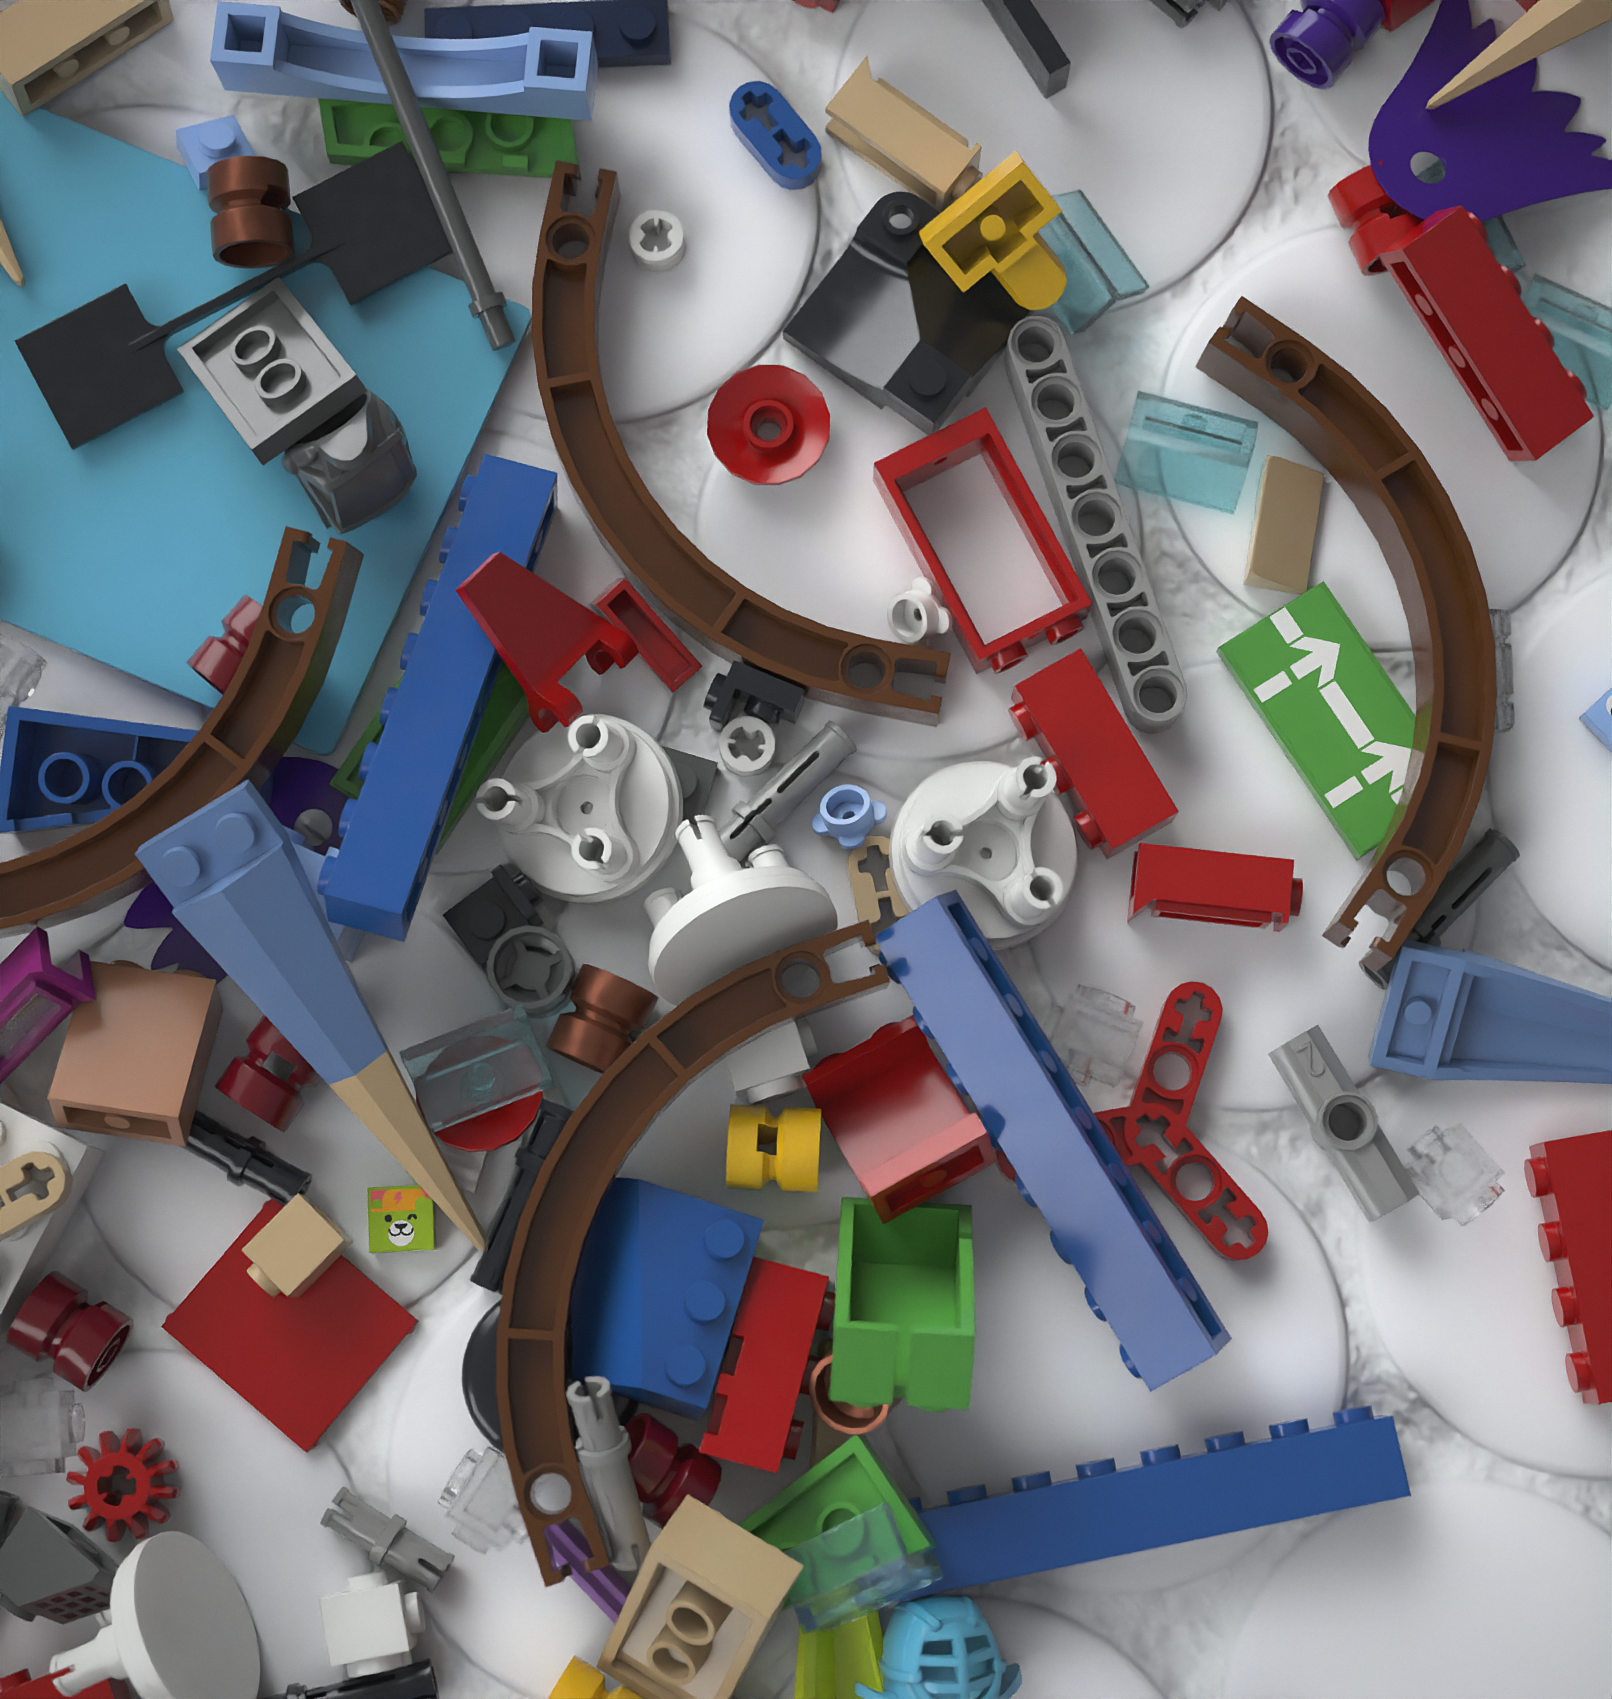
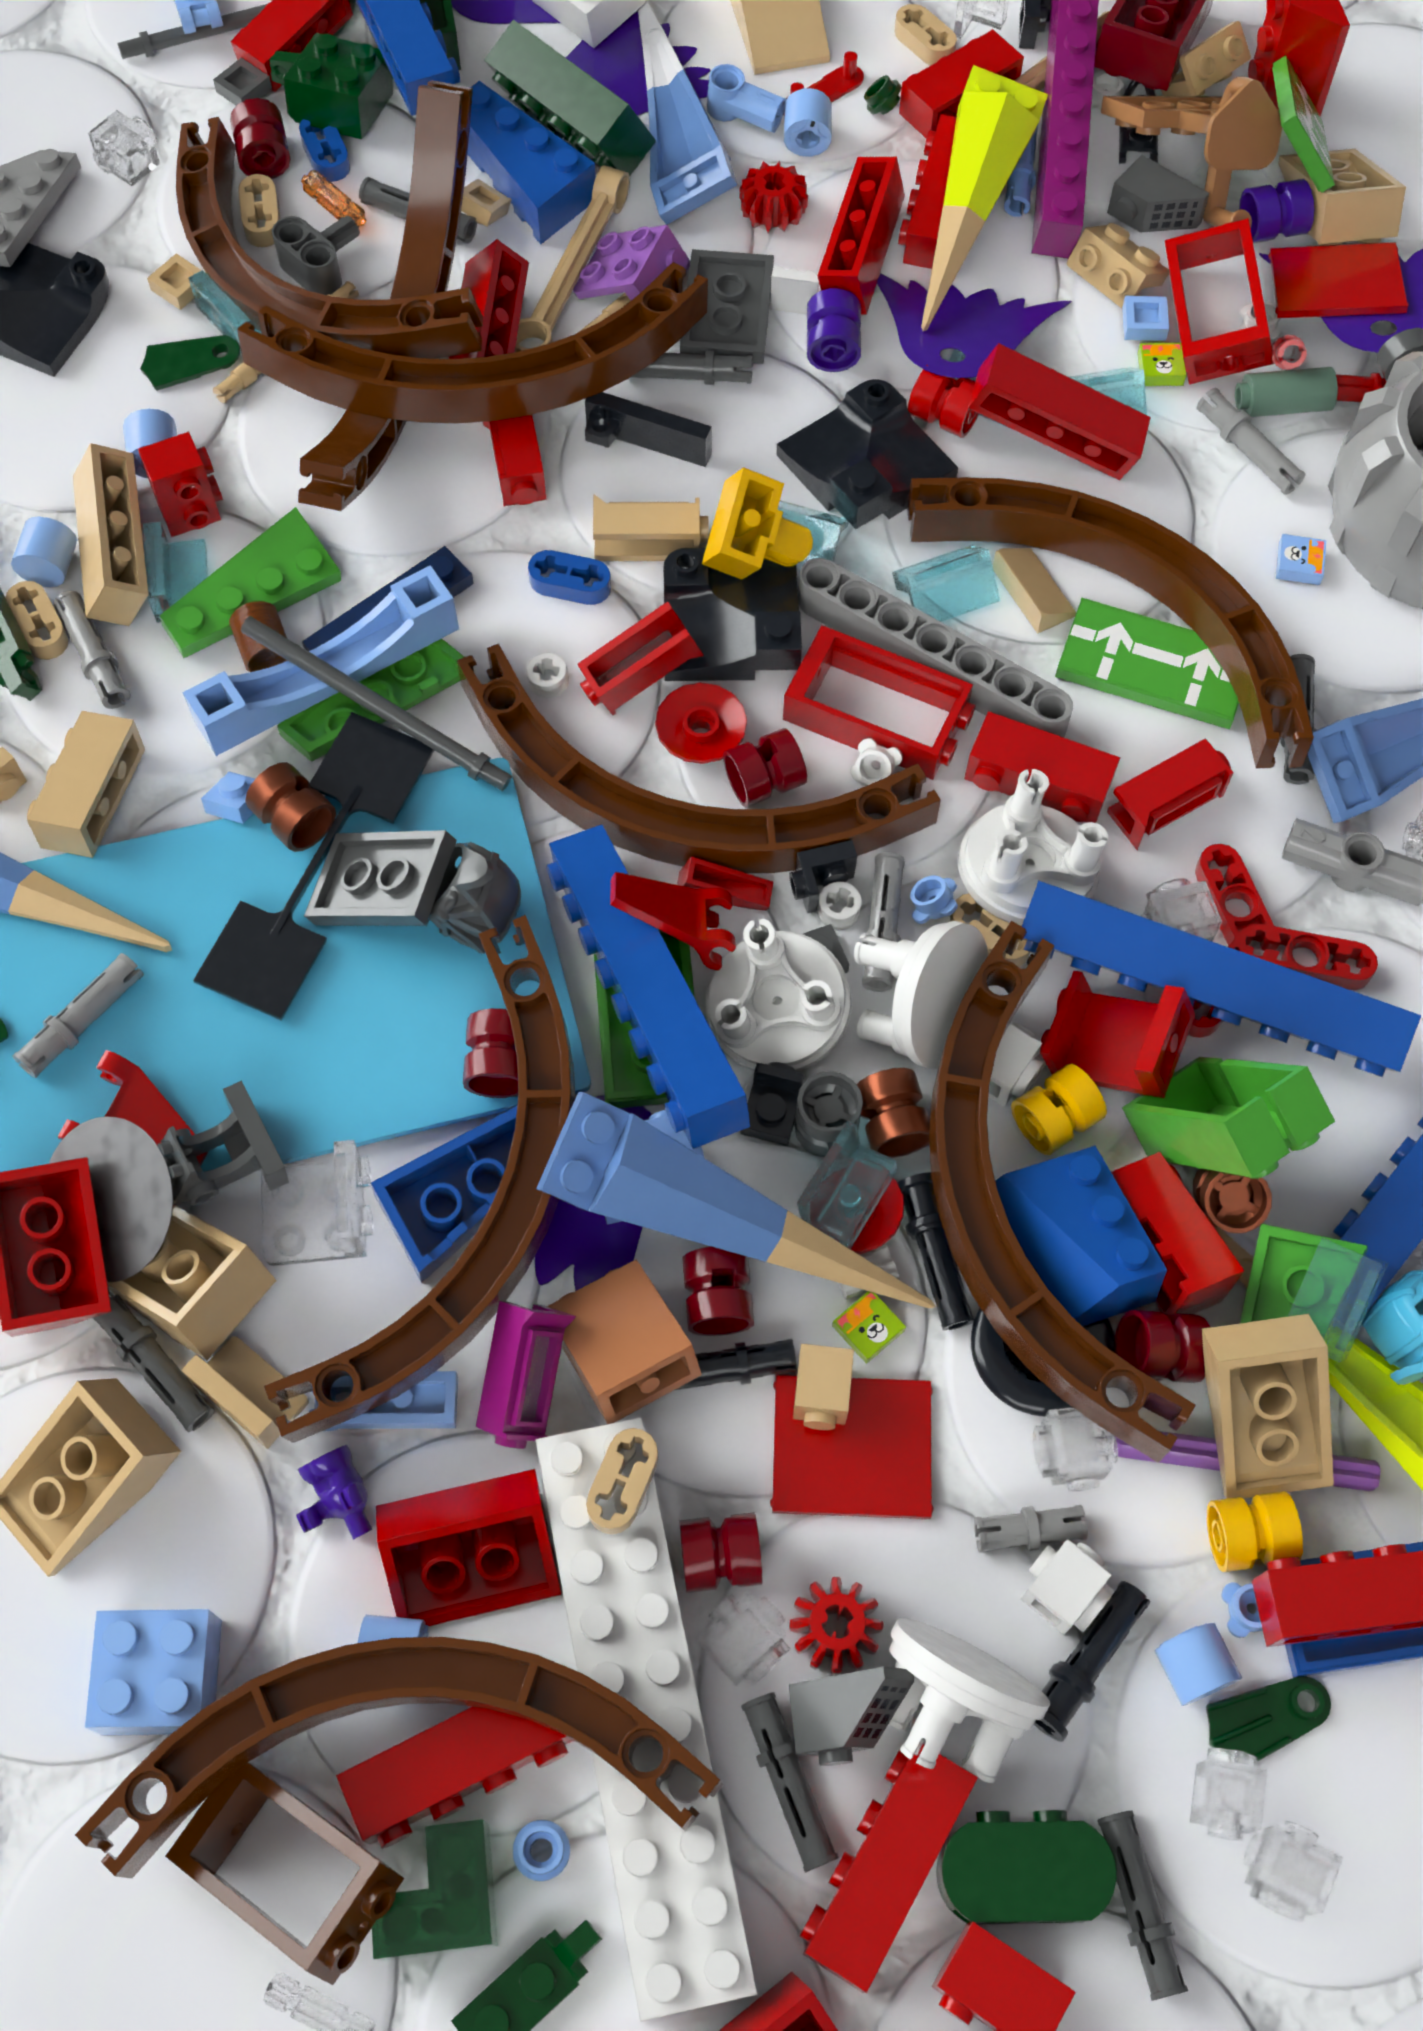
camera: 40 degrees left, 15 degrees down
(604, 1451) = (1135, 1333): light grey pin -> none
(757, 300) = (637, 658): none -> red window
(769, 524) = (765, 767): none -> dark red wheel
(1233, 222) = (864, 454): none -> black slope

